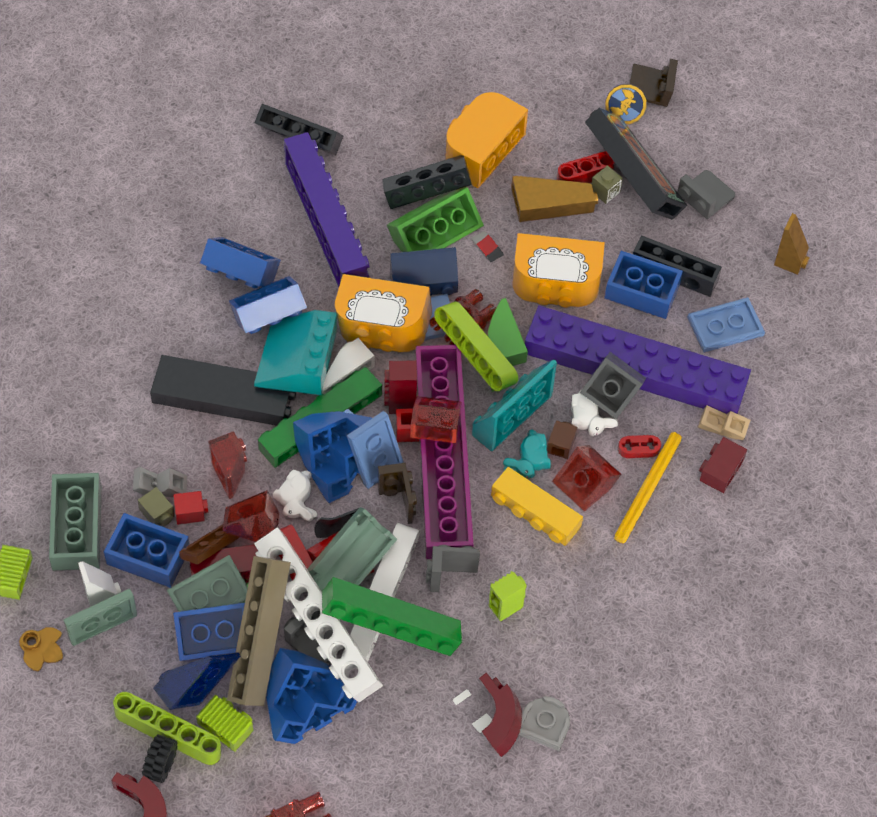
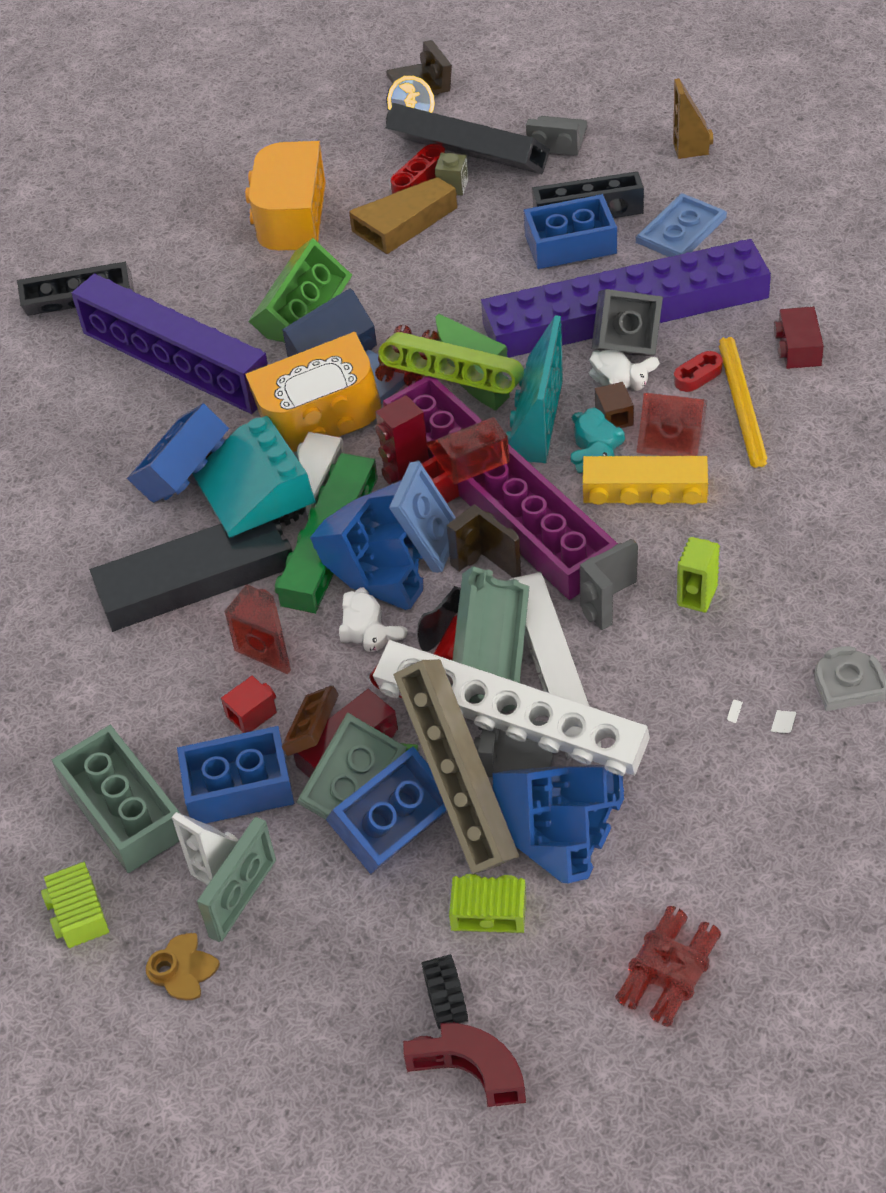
camera: 25 degrees left, 10 degrees down
(156, 507) = (207, 724): olive brick -> none
(162, 718) = (403, 952): lime beam -> none
(168, 481) = (197, 701): light grey slope -> none
(193, 681) = (414, 877): clear blue slope -> none
(239, 262) = (110, 433): blue brick -> none
(252, 517) = (339, 664): clear red slope -> none
(391, 616) = (594, 660): green brick -> none
(426, 182) = (262, 259): black brick -> none
(487, 246) = (374, 290): sticker -> none
(508, 716) = (818, 710): dark red arch -> none
(557, 270) = (469, 262): light orange brick -> none
(728, 425) = (762, 307): tan slope -> none

